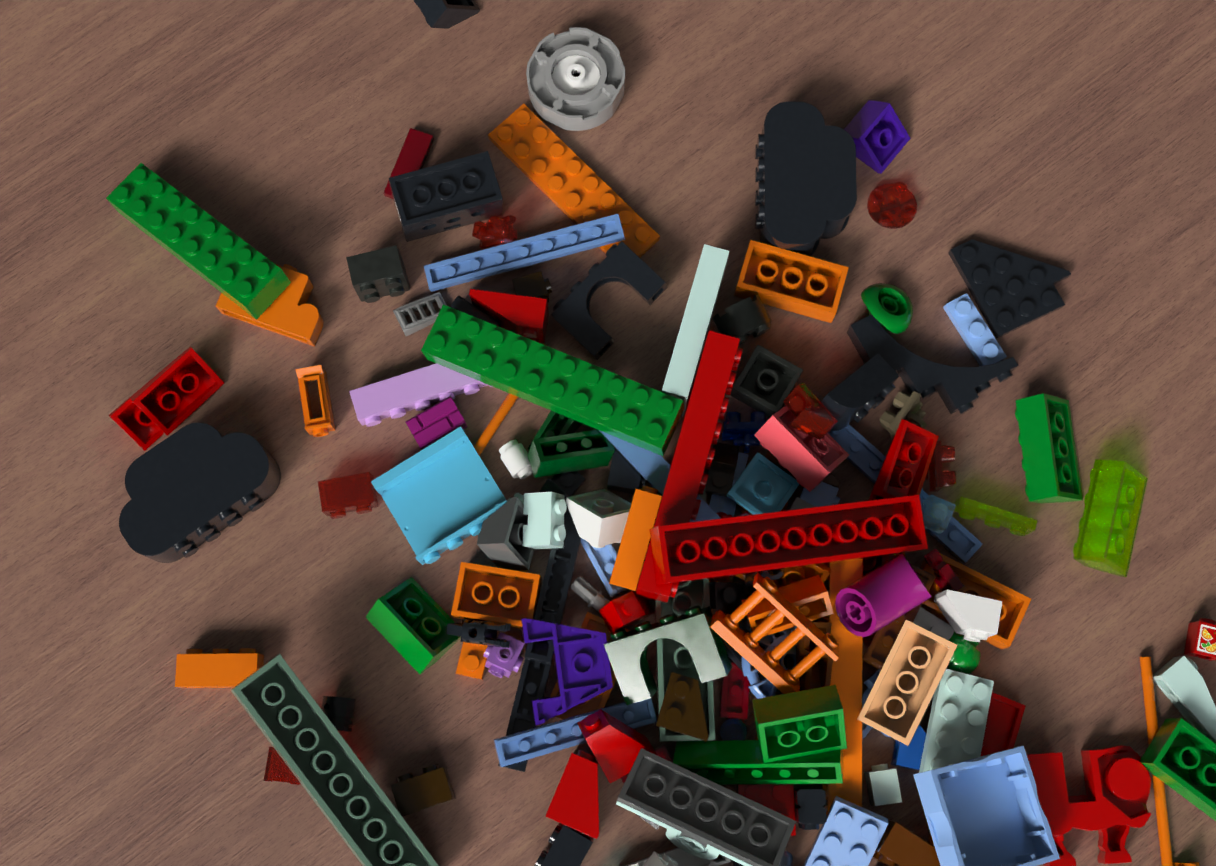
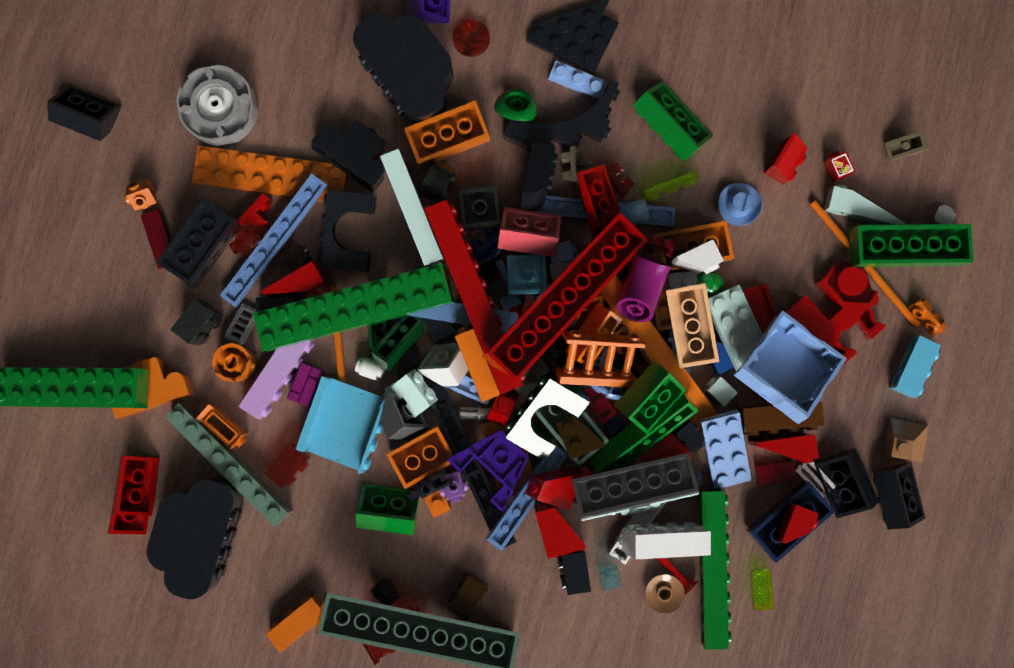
camera: 35 degrees left, 10 degrees up
(289, 446) = (229, 464): none -> sand green brick
(381, 343) = (233, 362): none -> orange brick
(427, 107) = (140, 194): none -> orange brick
(527, 210) = (252, 215): none -> red slope
(677, 226) = (353, 152): none -> black brick
(811, 414) = (522, 210): clear red slope -> none
(1059, 595) = (740, 204): none -> medium blue hat
(1110, 517) = (736, 134): clear neon green slope -> none
(1150, 586) = (786, 159): none -> red slope

